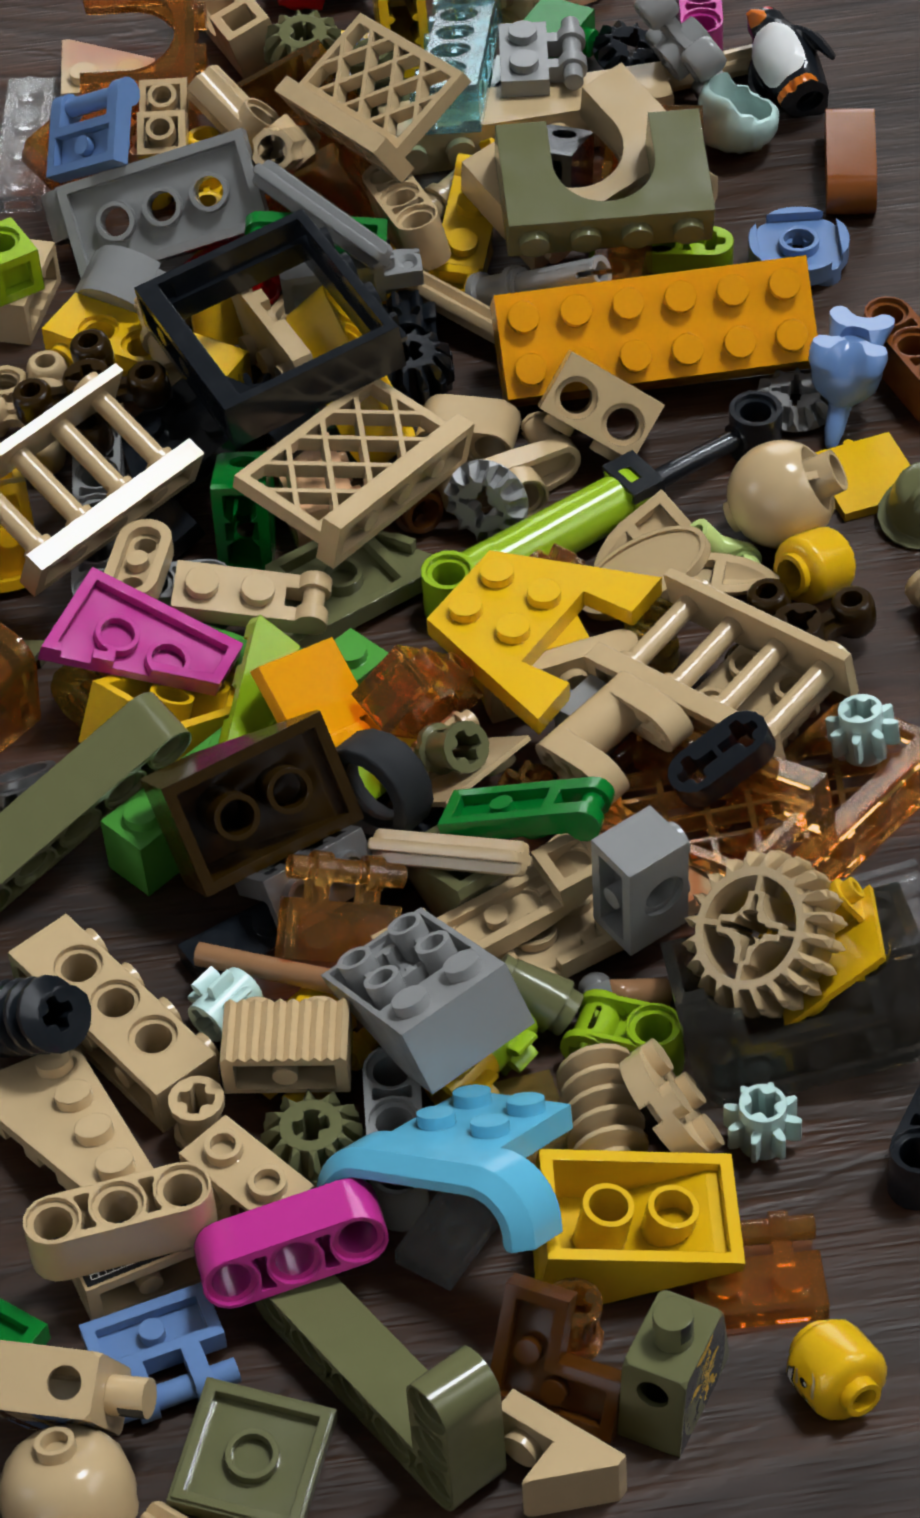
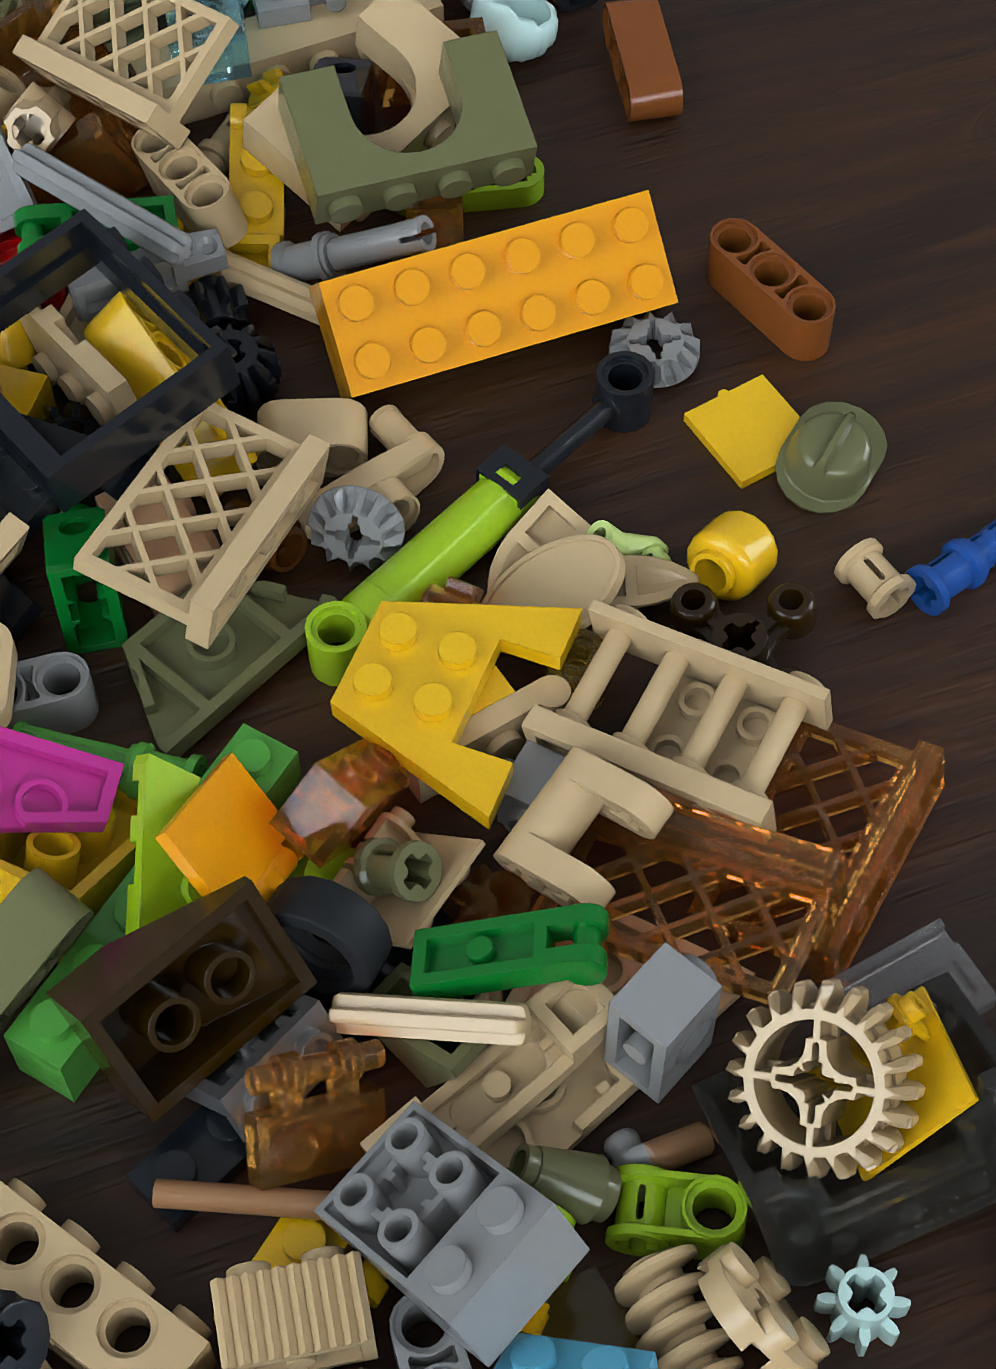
camera: 15 degrees left, 10 degrees up
(211, 993) = (199, 1253): light aqua gear -> none
(238, 594) = (117, 698): tan plate -> none
(606, 396) = (462, 385): tan brick -> none
(721, 758) = (705, 835): black beam -> none
(782, 491) = (682, 475): tan brick -> none
(821, 242) = (609, 140): medium blue plate -> none
(848, 365) = (712, 306): medium blue animal -> none
(862, 730) = (846, 767): light aqua gear -> none

